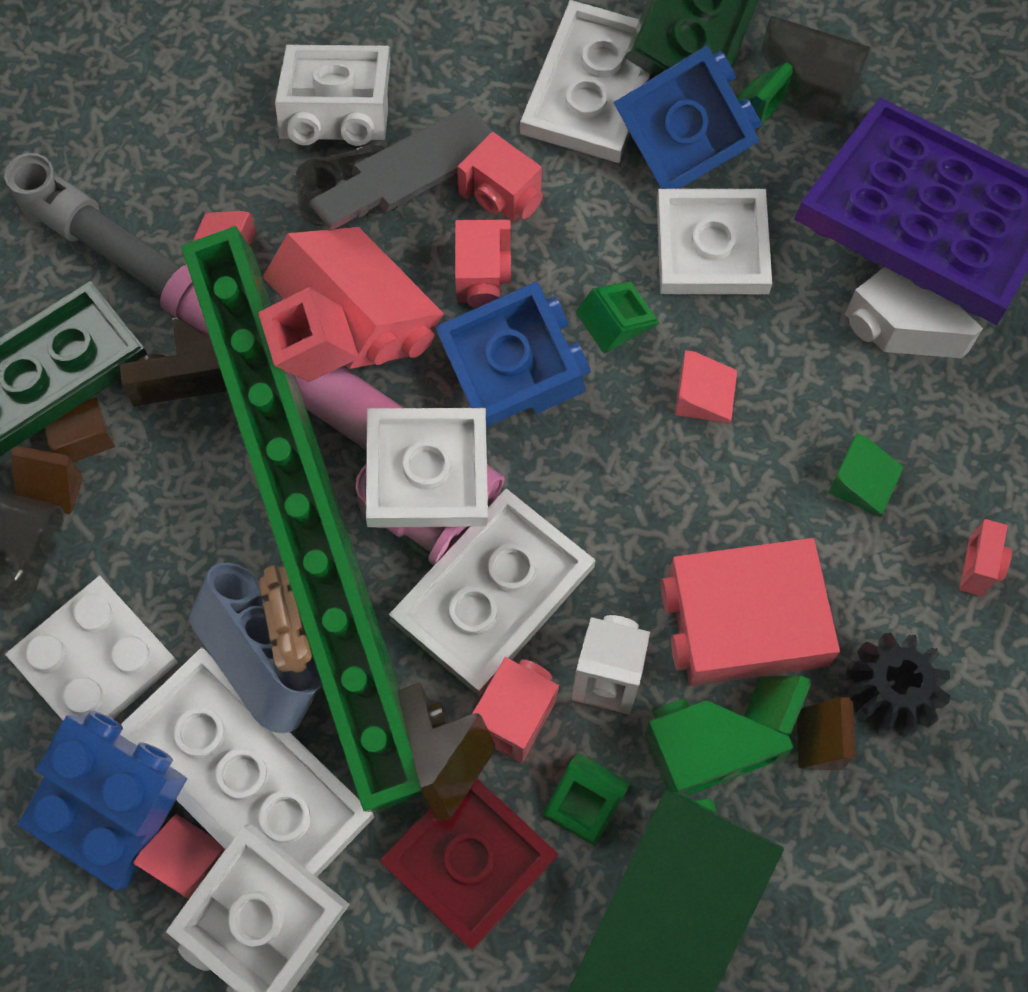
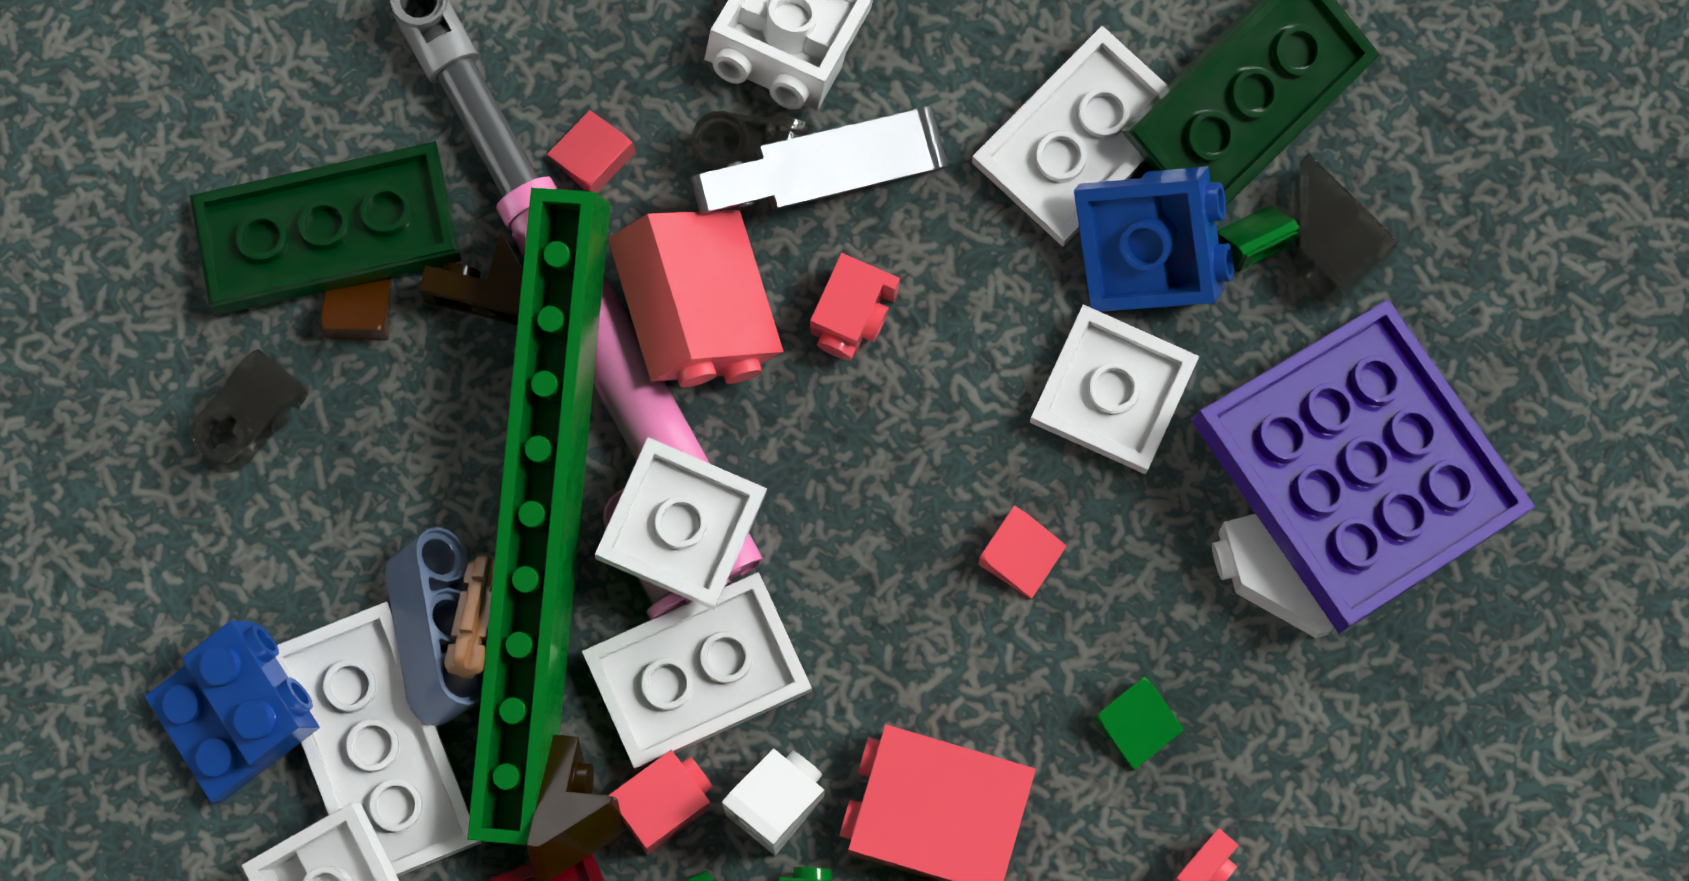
camera: 25 degrees right, 10 degrees up
(46, 477) = (304, 352): reddish brown slope -> none
(92, 655) = (278, 558): white plate -> none
(180, 855) = (283, 797): coral slope -> none
(308, 335) = (618, 342): coral brick -> none
(501, 179) = (919, 217): coral brick -> none
(514, 354) = (834, 430): blue plate -> none
(615, 315) = (971, 425): green slope -> none

